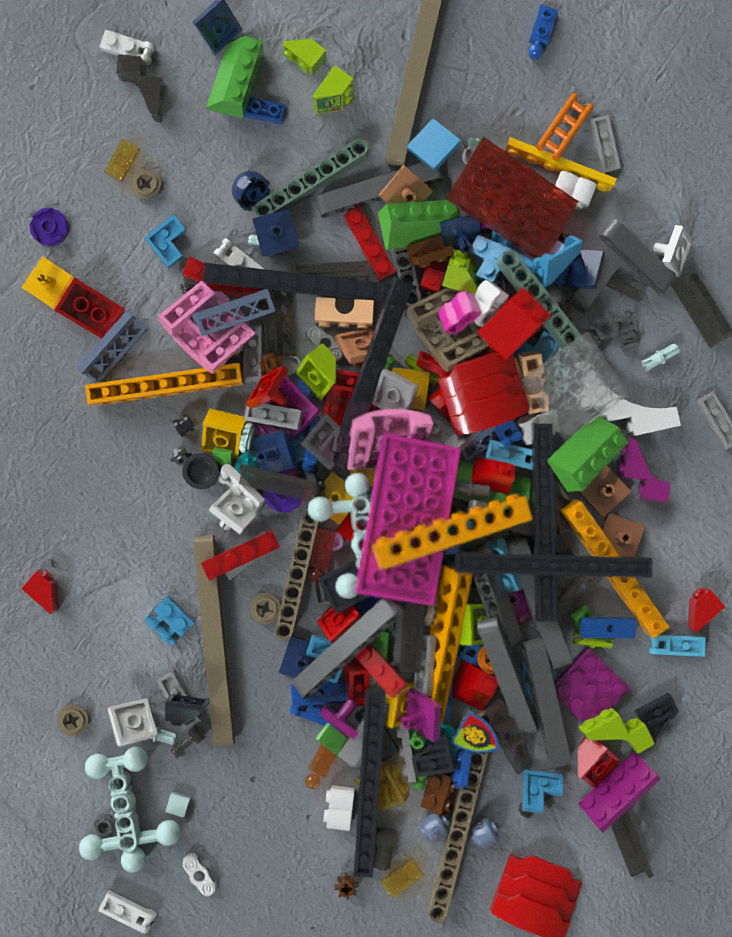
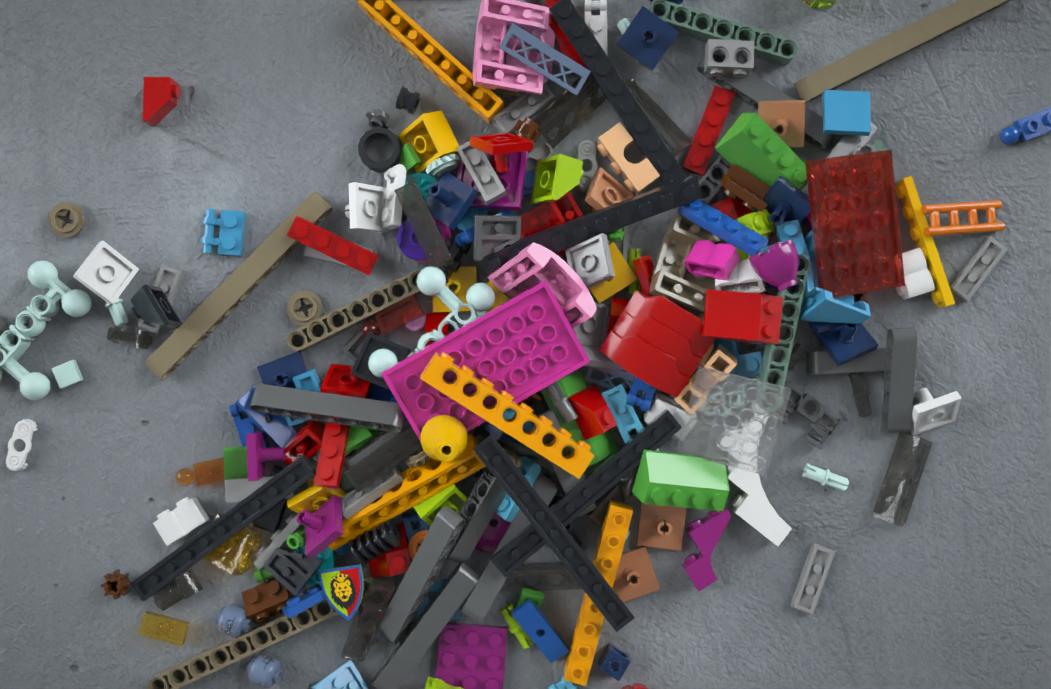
camera: 55 degrees right, 0 degrees up
(329, 188) = (728, 51): none -> light grey brick
(433, 586) = (444, 438): none -> yellow cone
(444, 287) = (723, 227): none -> blue plate
(463, 689) = (376, 544): none -> black piece
(500, 273) = (777, 265): none -> magenta piece
(668, 595) = (614, 662): none -> dark blue brick

